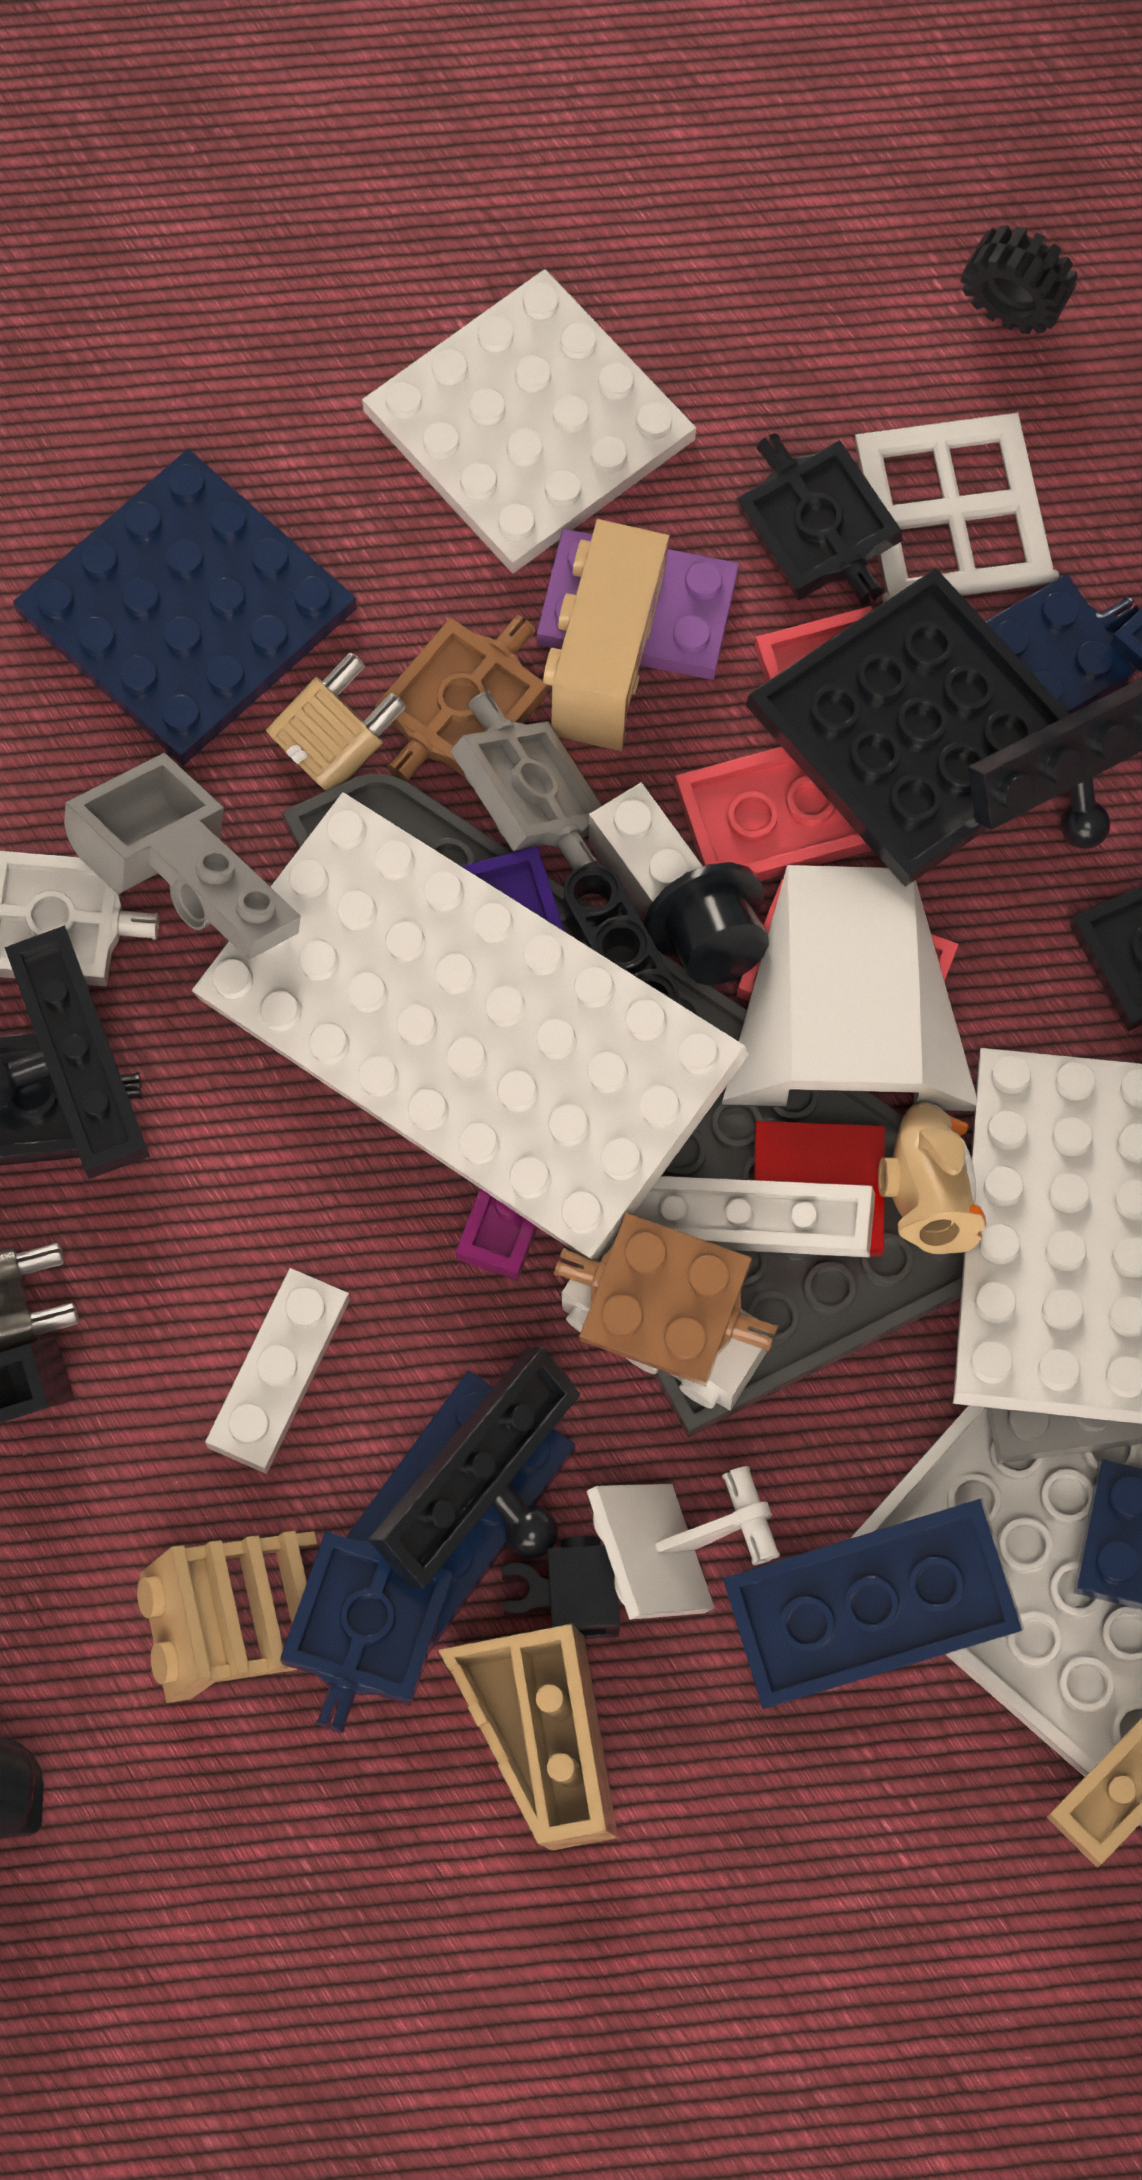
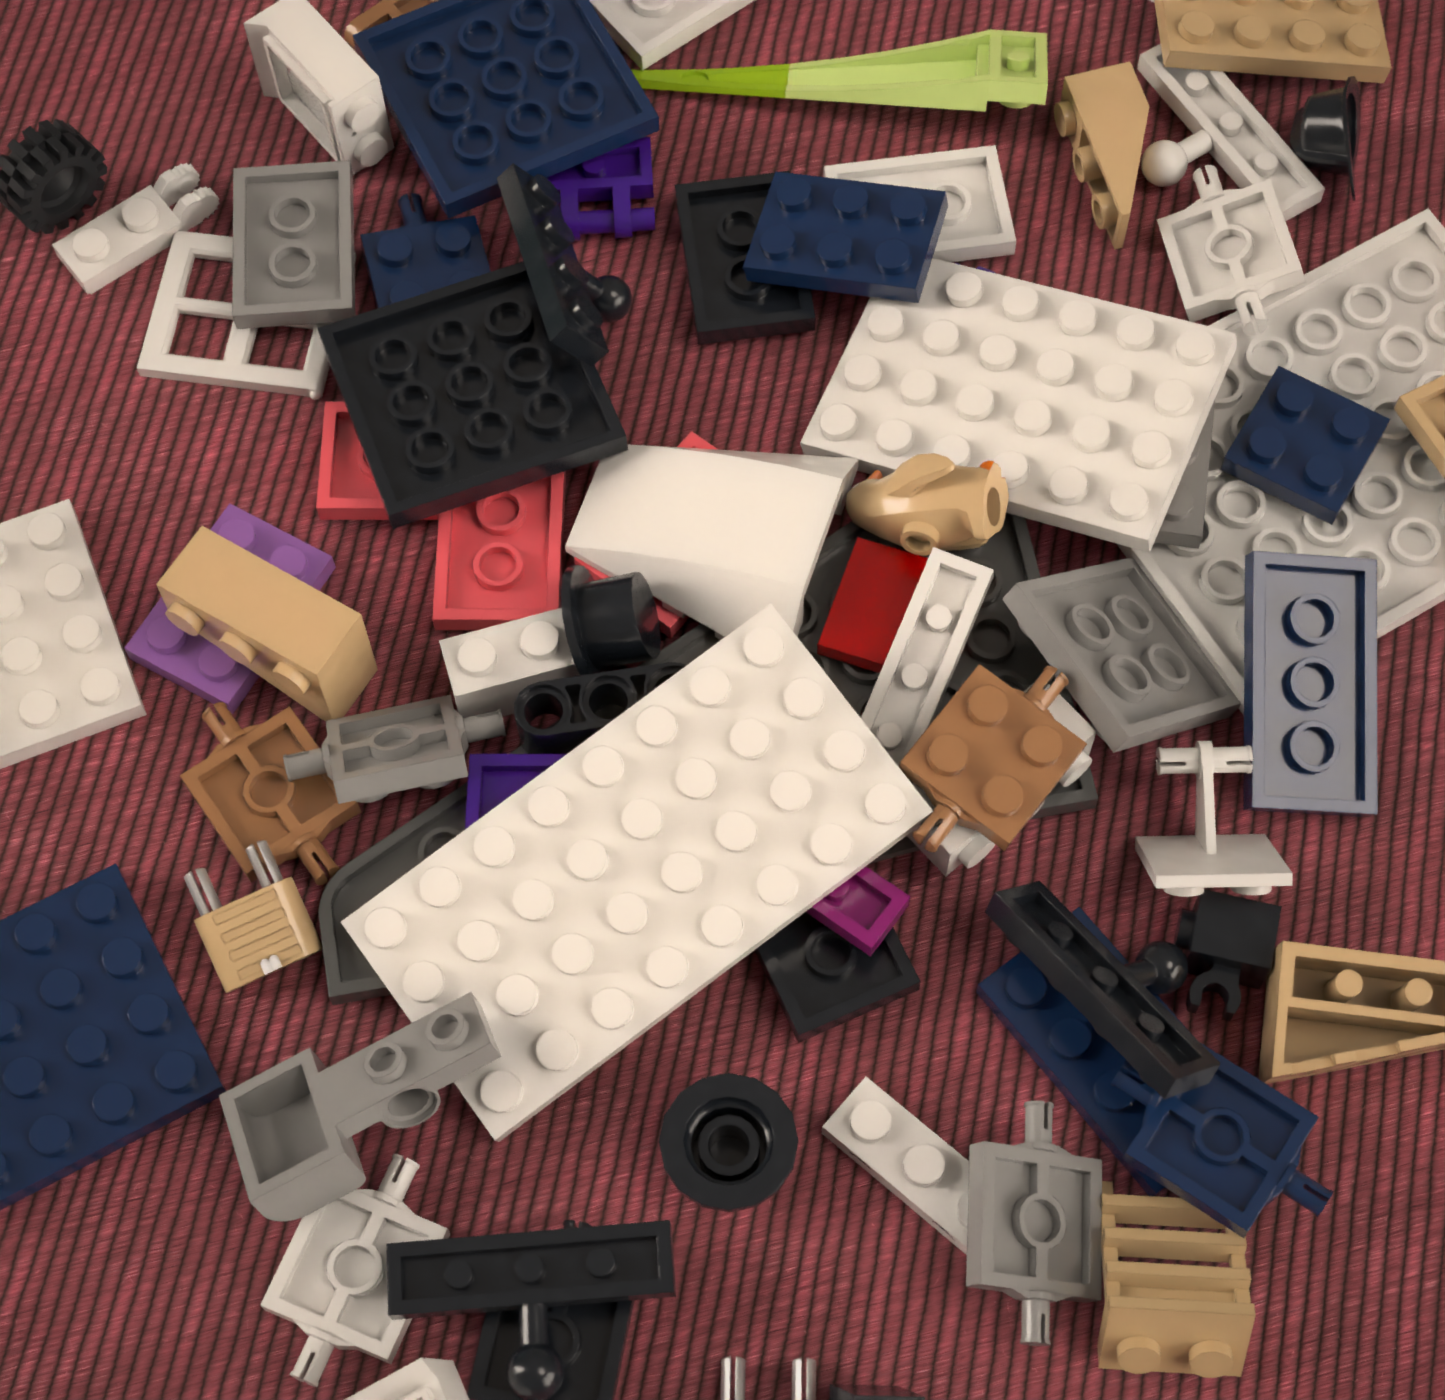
camera: 70 degrees left, 5 degrees down
(239, 1183) = (728, 1142): none -> black piece
(246, 1472) = (1034, 1223): none -> light grey plate
(423, 1233) = (829, 980): none -> black plate
(819, 519) = (215, 419): black plate -> none
(841, 1408) = (1121, 652): none -> light grey plate
(1006, 378) = (135, 228): none -> white hinge
(1032, 518) = (293, 244): none -> light grey plate

